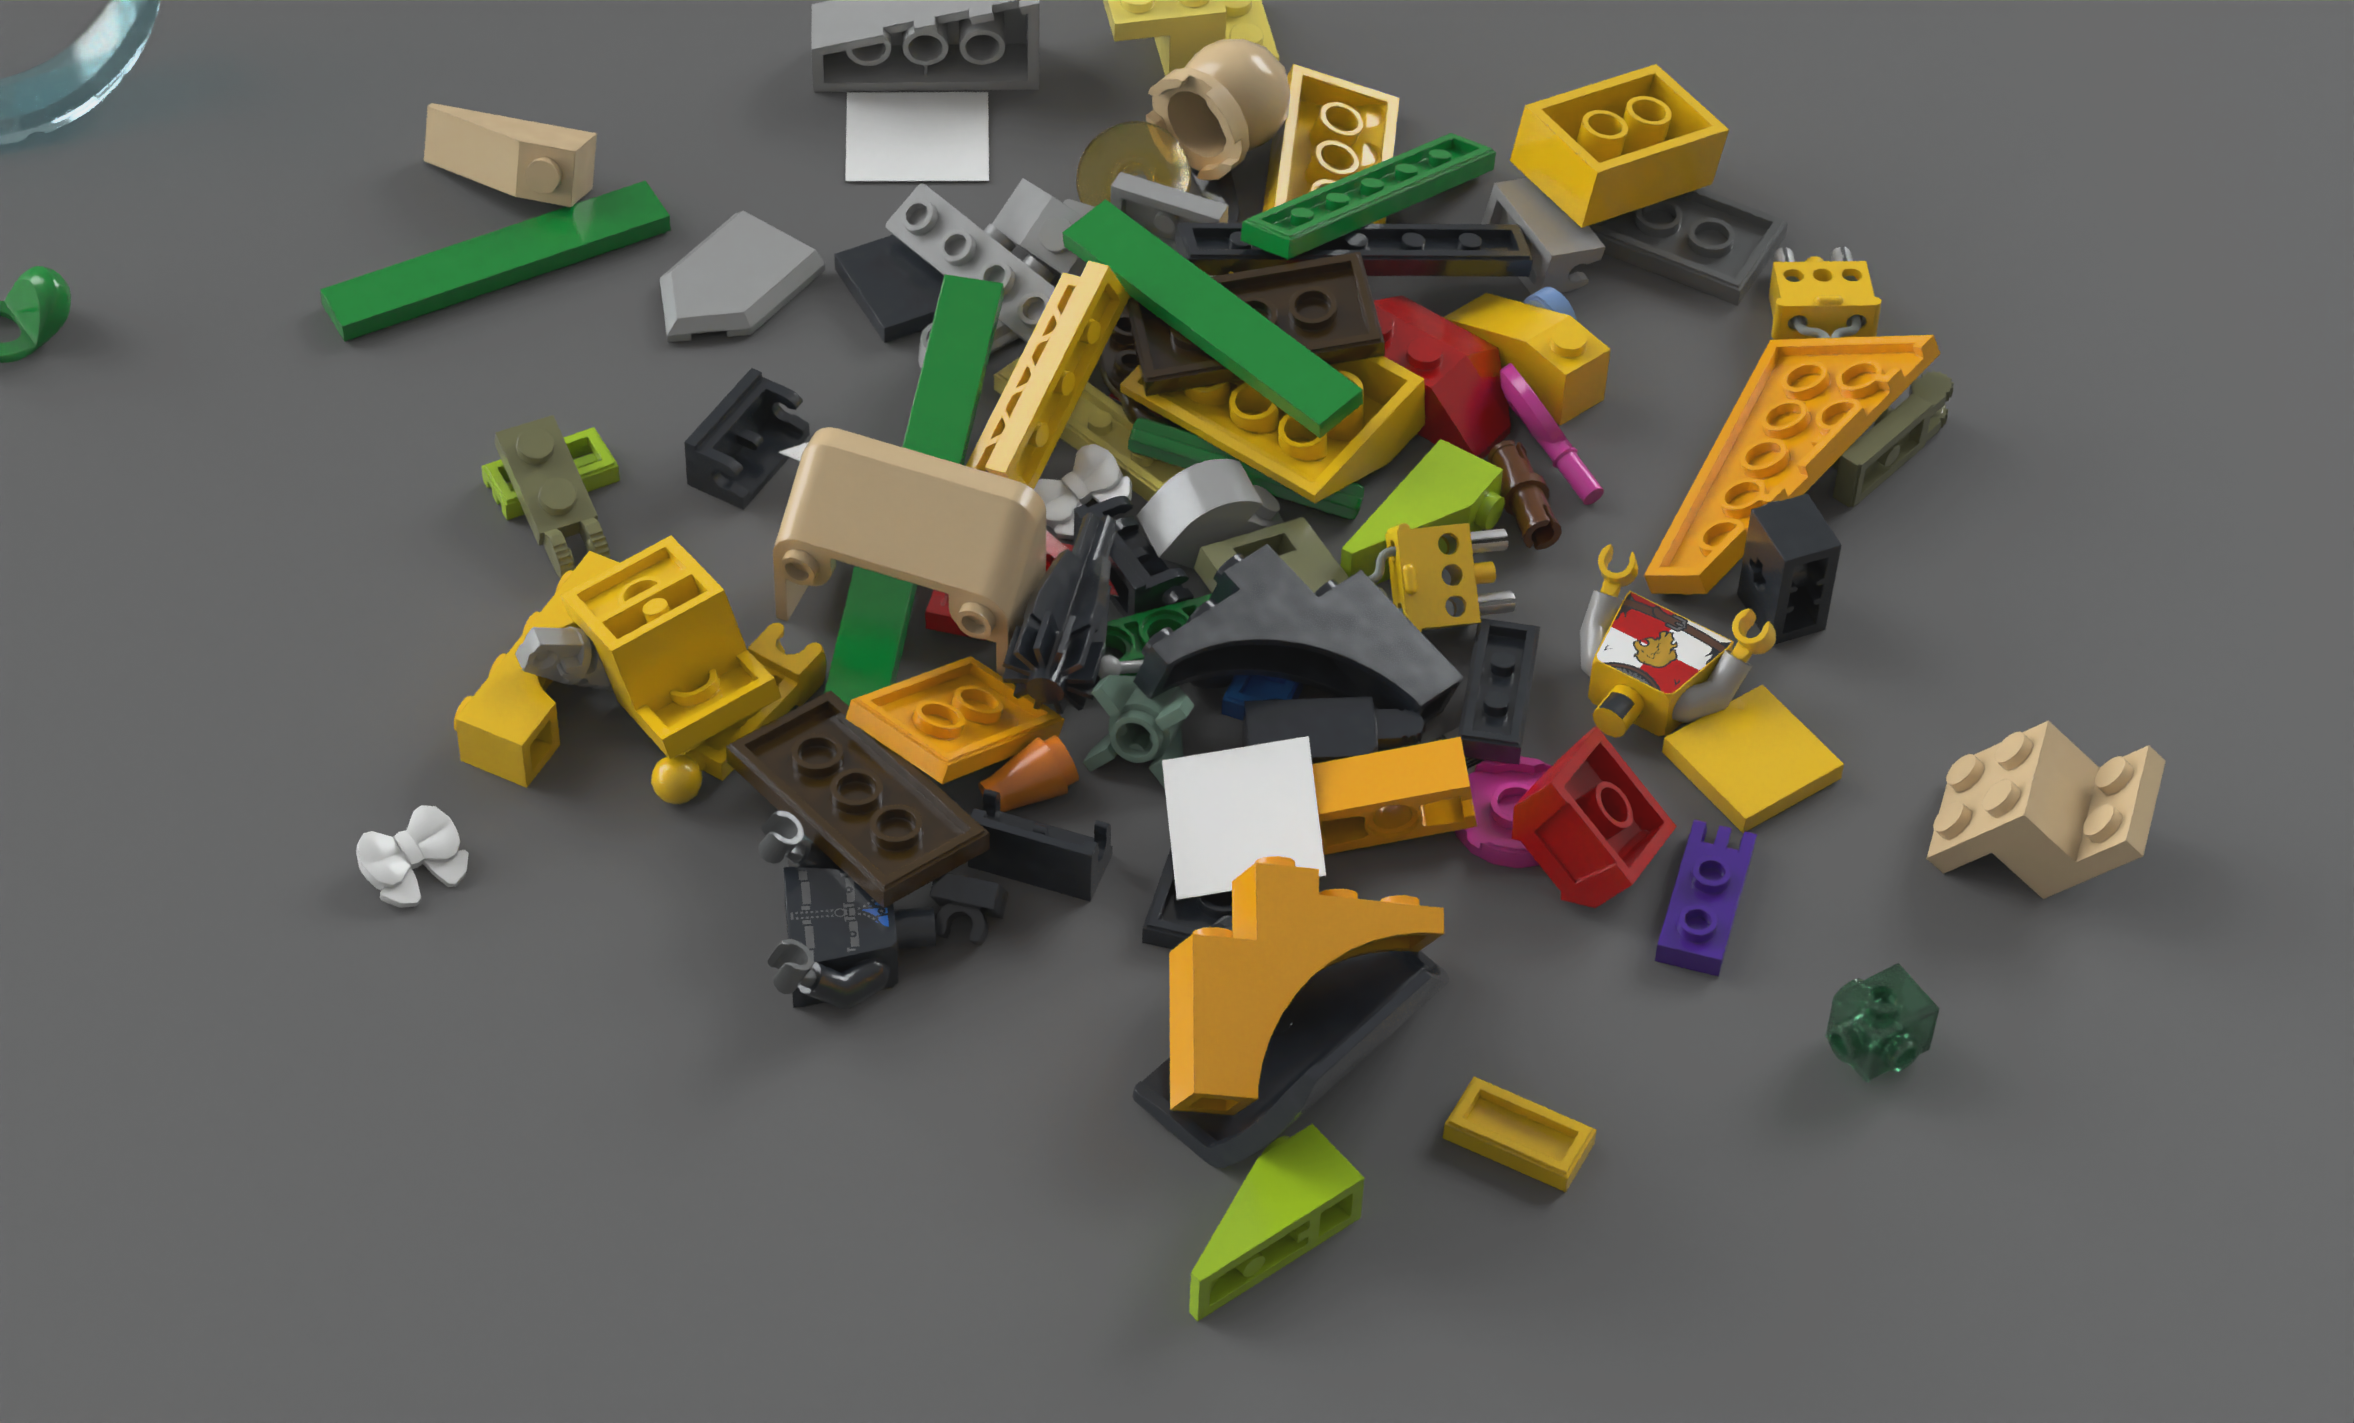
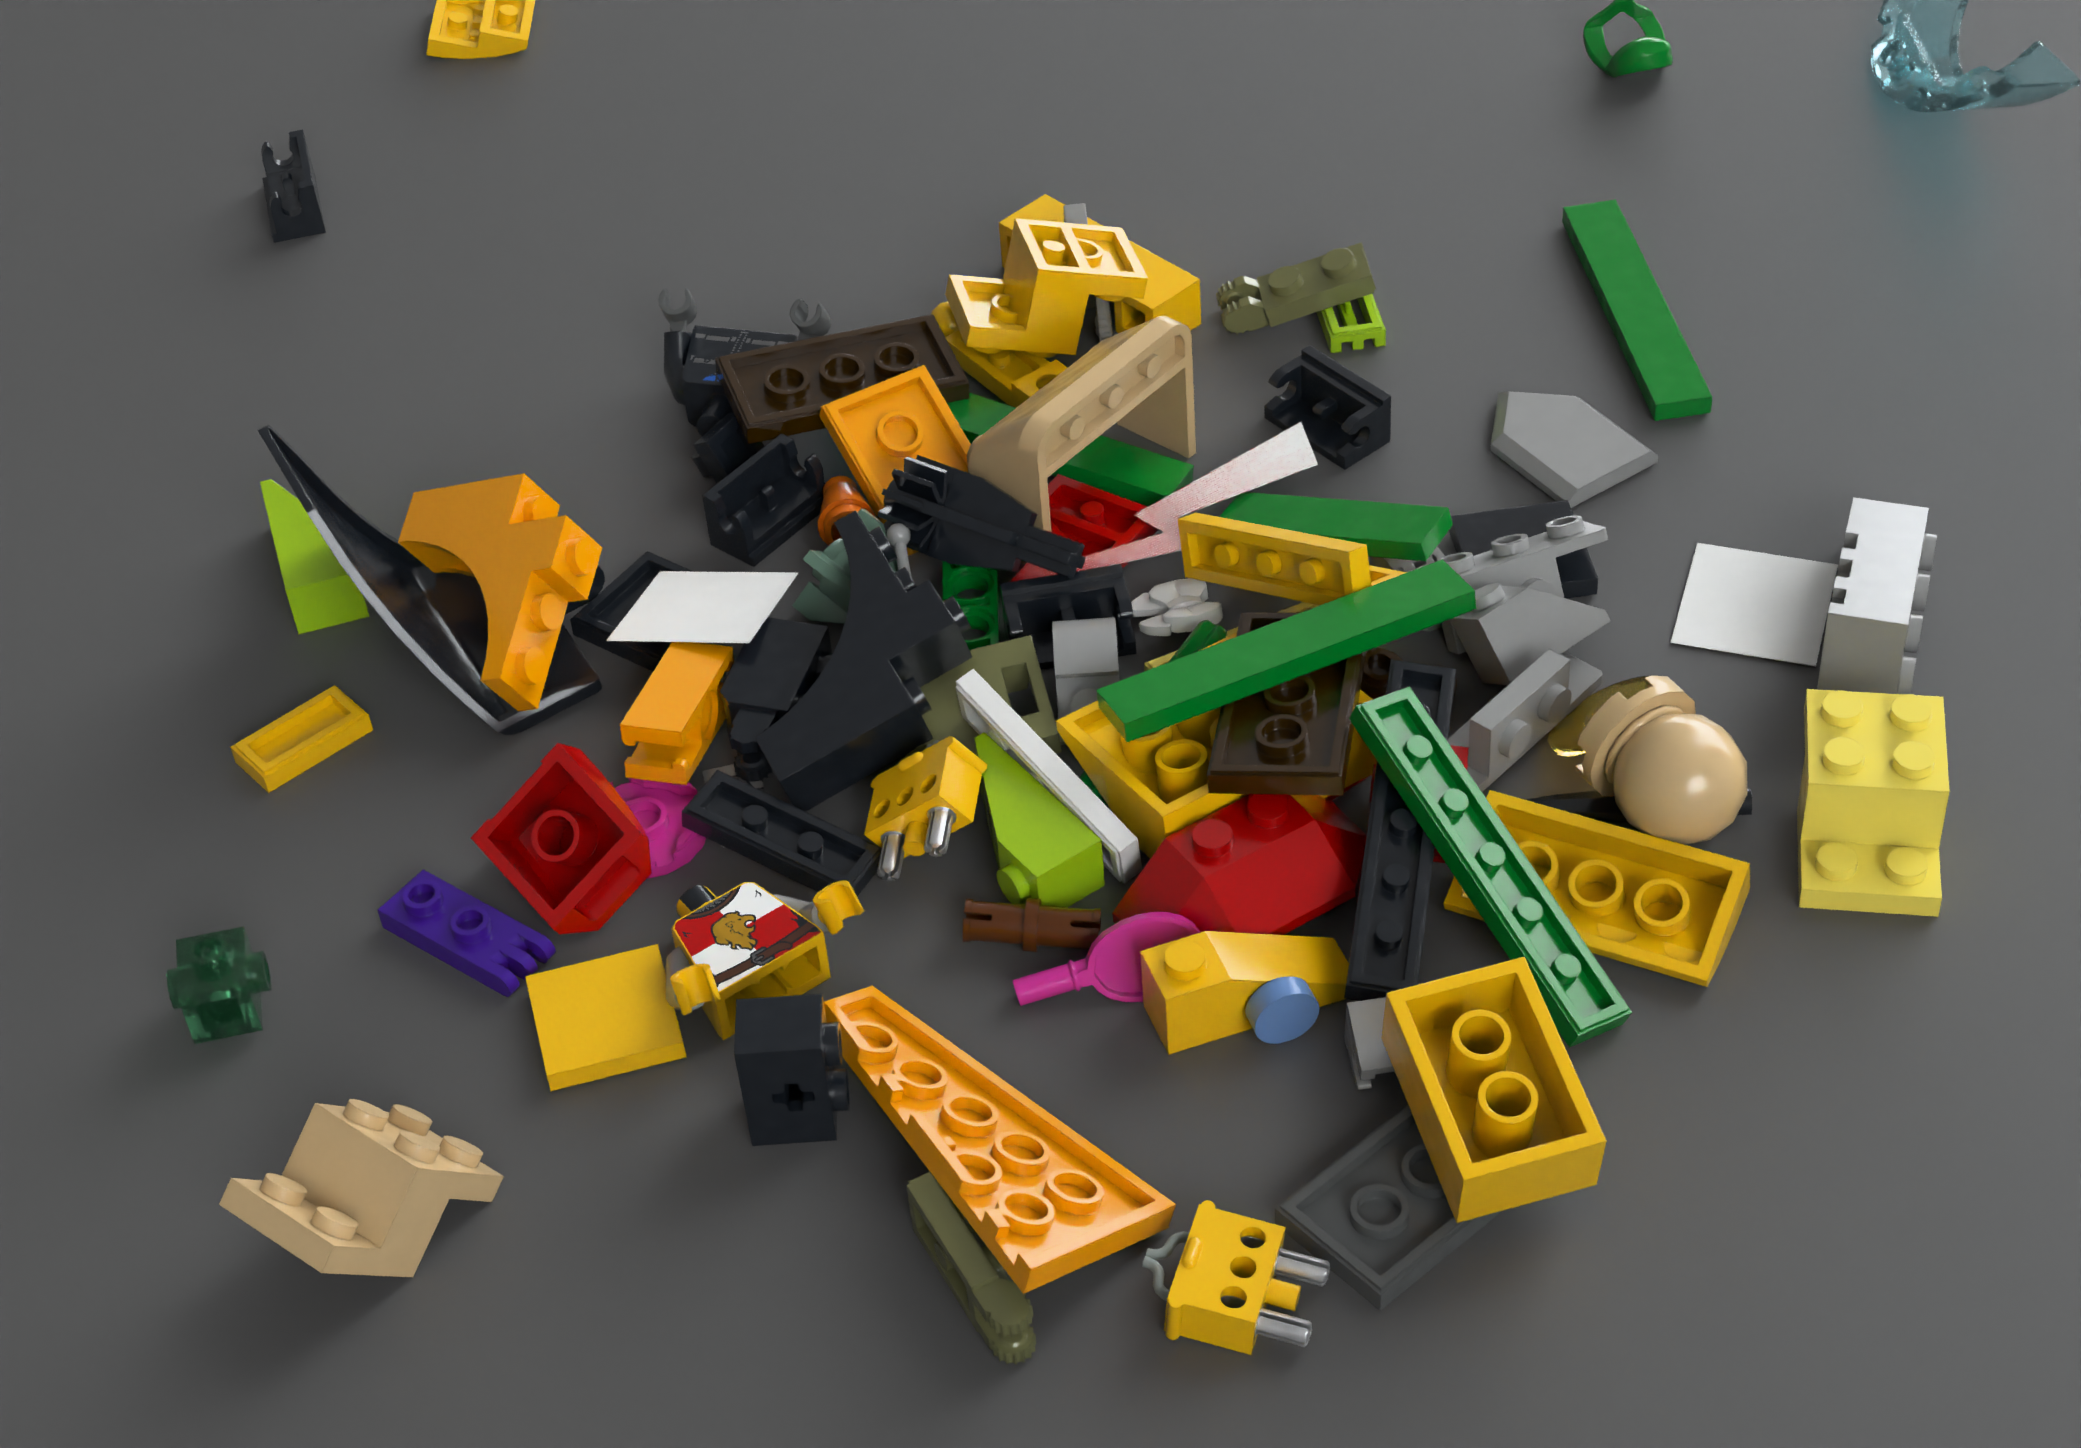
camera: 115 degrees right, 5 degrees down
(428, 841) = (950, 182): white piece -> none
(512, 154) = (1746, 312): tan slope -> none
(1336, 528) = (991, 714): none -> white tile

